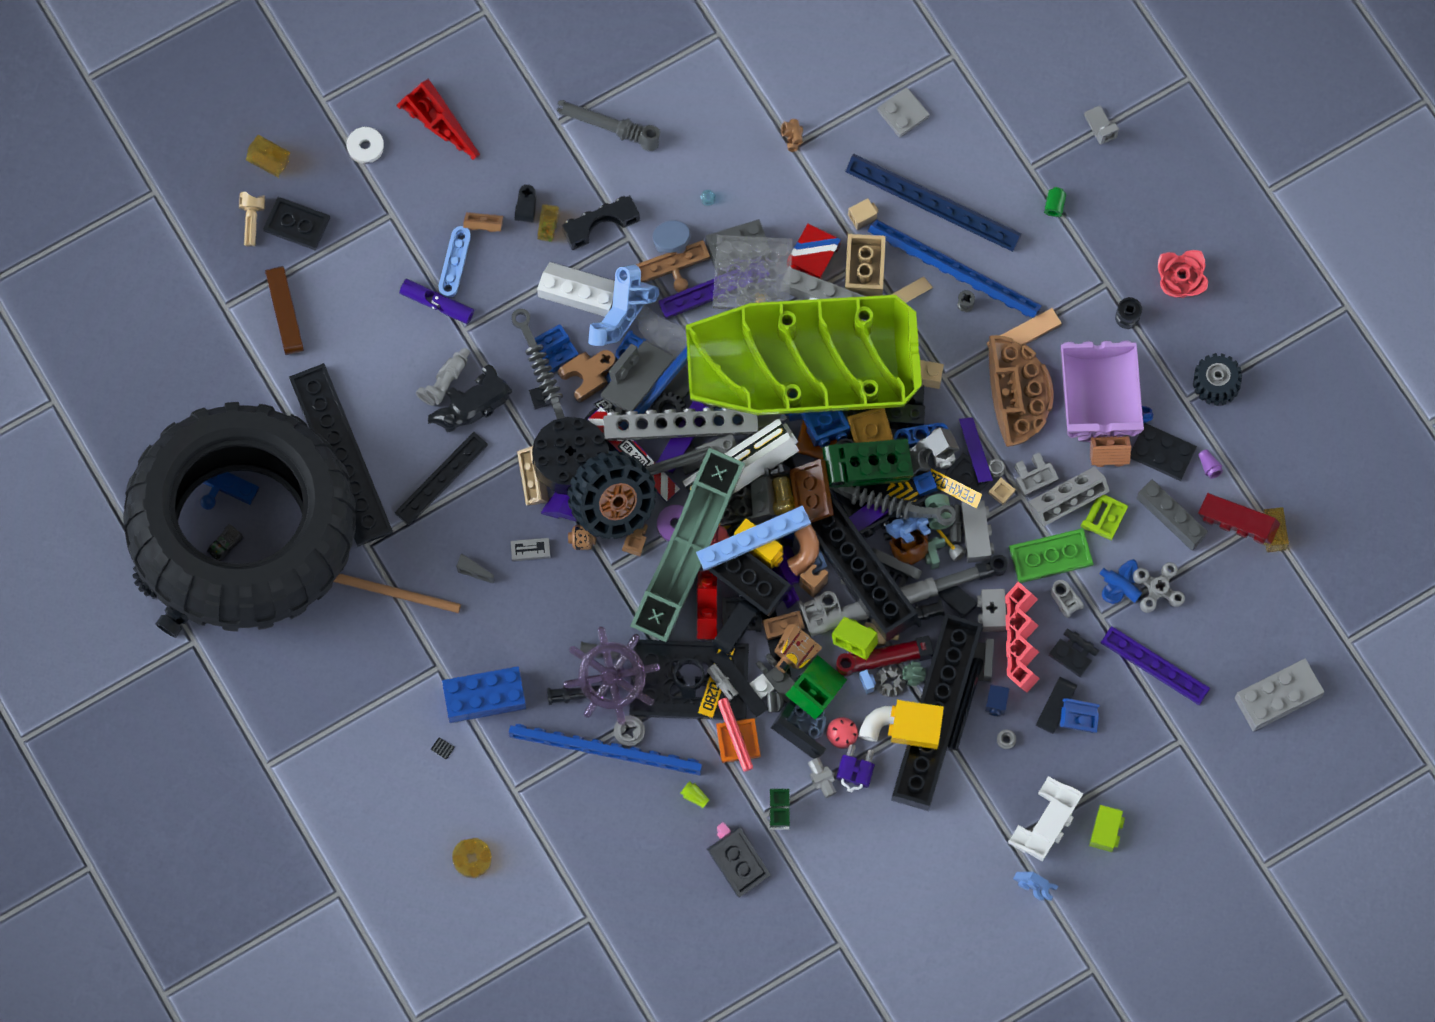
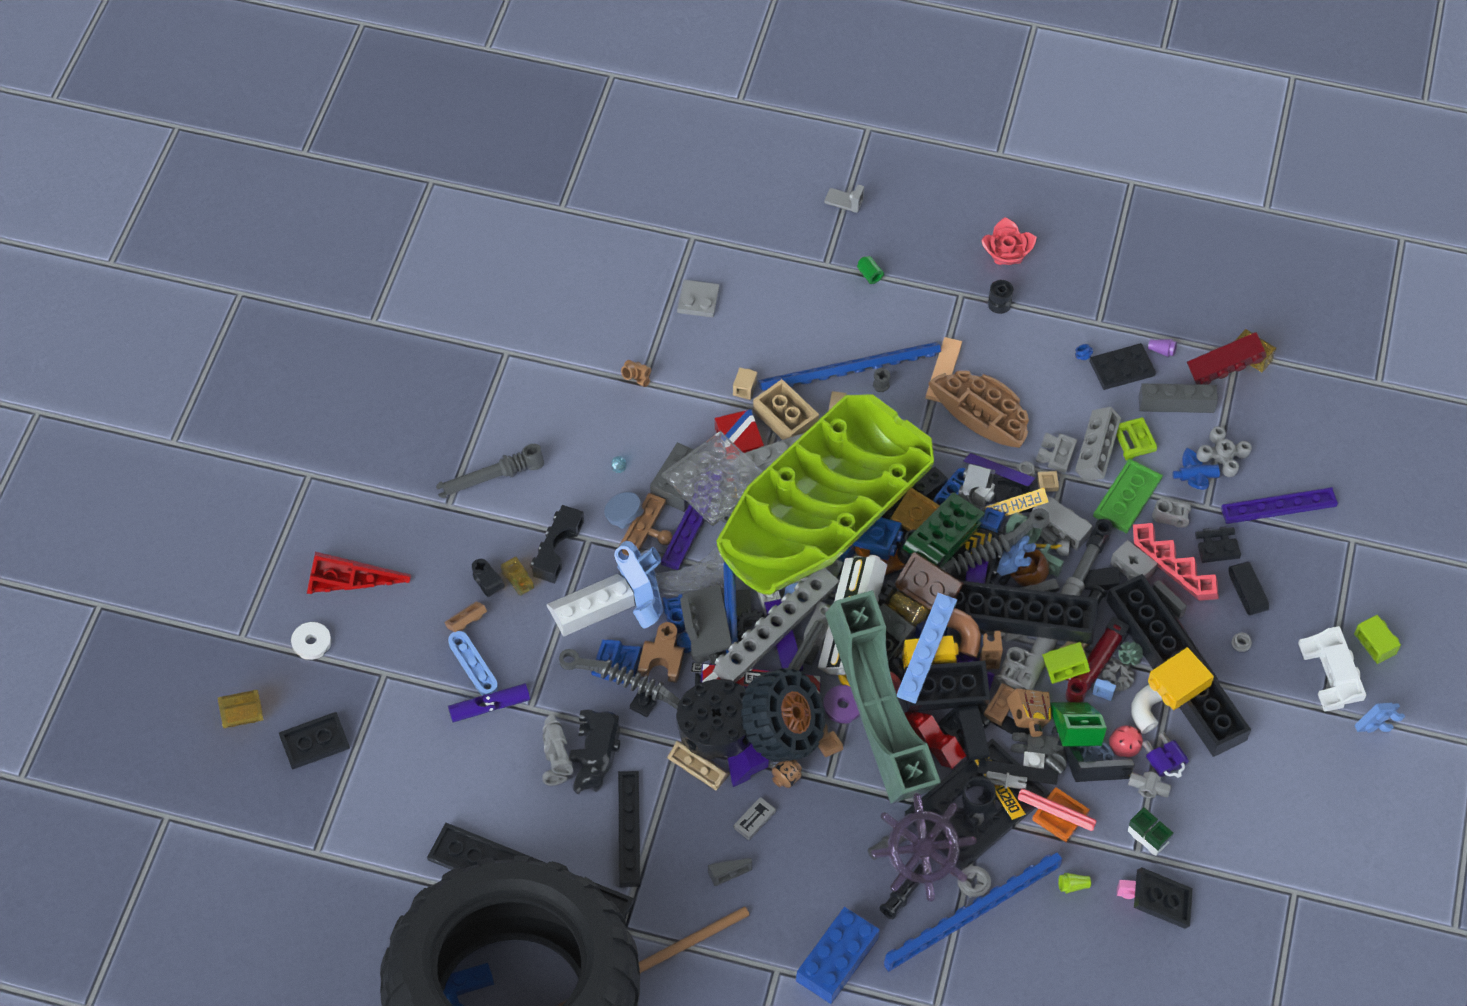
camera: 45 degrees left, 15 degrees down
(251, 206) = (263, 755): tan piece -> none
(284, 310) = (371, 812): reddish brown beam -> none
(933, 202) = (785, 336): dark blue plate -> none
(997, 700) = (1206, 620): dark blue brick -> none
(1079, 715) = (1273, 579): blue plate -> none
(1101, 389) = (1045, 354): lavender cylinder -> none
(1110, 451) = (1091, 391): nougat brick -> none
(1217, 379) = (1106, 289): black wheel -> none
(1279, 695) = (1381, 450): light grey brick -> none

